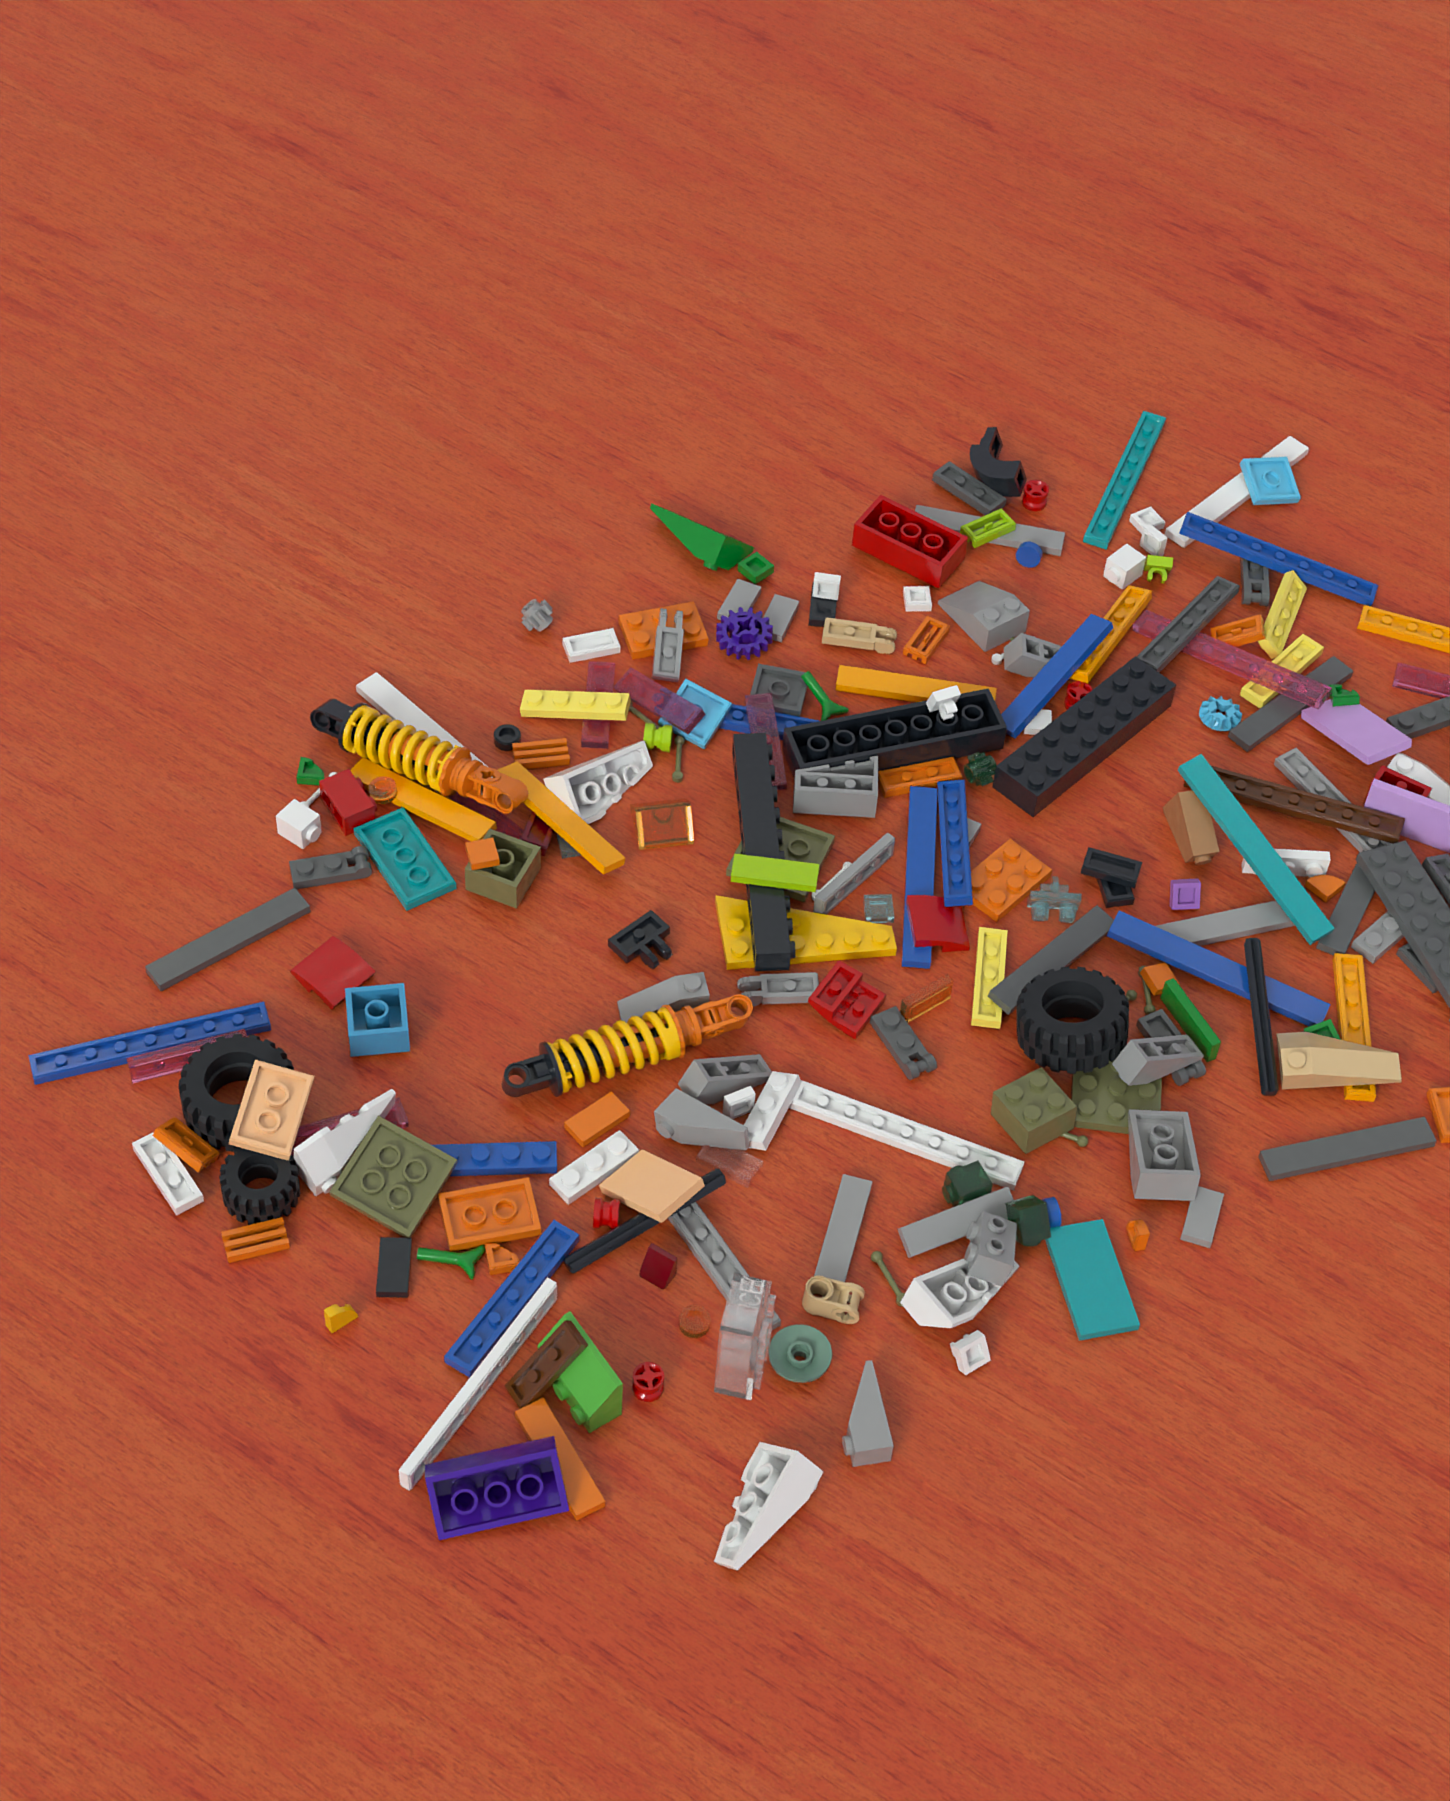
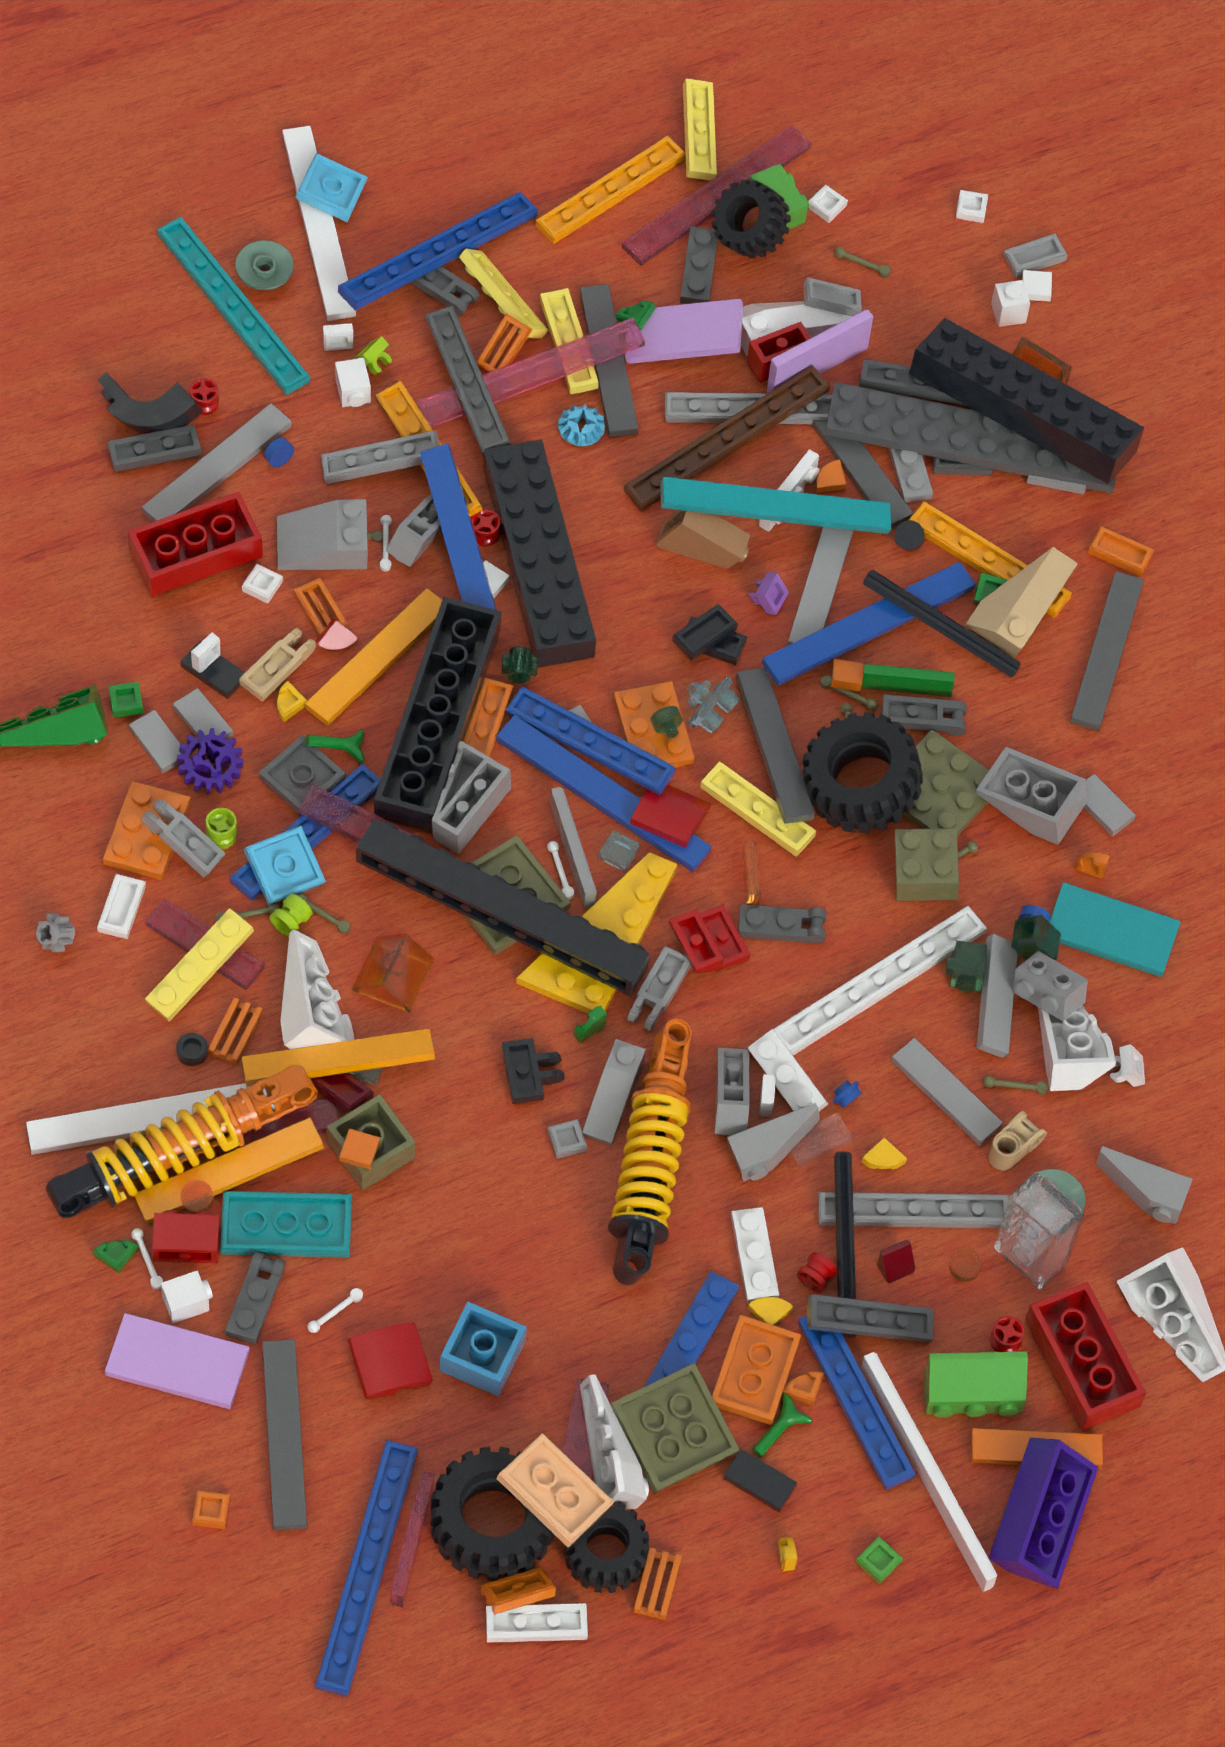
camera: 60 degrees left, 10 degrees up
(137, 925) = (211, 1509): none -> orange tile
(246, 848) = (177, 1361): none -> lavender tile
(376, 928) = (355, 1296): none -> white hinge
(377, 1389) = (879, 1560): none -> bright green tile
(546, 1364) = (956, 1405): reddish brown tile -> none
(551, 1201) = (770, 1309): none -> yellow tile
(587, 1267) = (869, 1318): none -> dark grey plate
(597, 1119) = (704, 1223): orange tile -> none
(604, 994) = (567, 1139): none -> light grey tile
(652, 1185) = (816, 1217): light nougat tile -> none
(660, 700) = (251, 887): clear pink tile -> none
(665, 1446) = (1085, 1356): none -> red brick
(696, 665) = (219, 821): none -> lime wheel
(713, 960) = (593, 1025): none -> green tile
(749, 1213) = (884, 1156): none -> yellow tile
(774, 872) = (553, 911): lime tile -> none
(784, 1157) = (846, 1093): none -> blue plate
(834, 658) = (289, 701): none -> yellow tile
(909, 656) = (336, 636): none -> tile
(944, 701) = (445, 644): white tile -> none
(991, 530) = (221, 486): lime tile -> none
(1008, 874) = (667, 720): none -> clear green tile
(1073, 605) = (377, 457): none -> light grey tile
(1145, 517) = (301, 324): white tile -> none
(1155, 1057) = (942, 734): light grey slope -> none
(1170, 475) = (262, 256): none -> sand green dish
(1322, 960) = (909, 535): none -> black tile

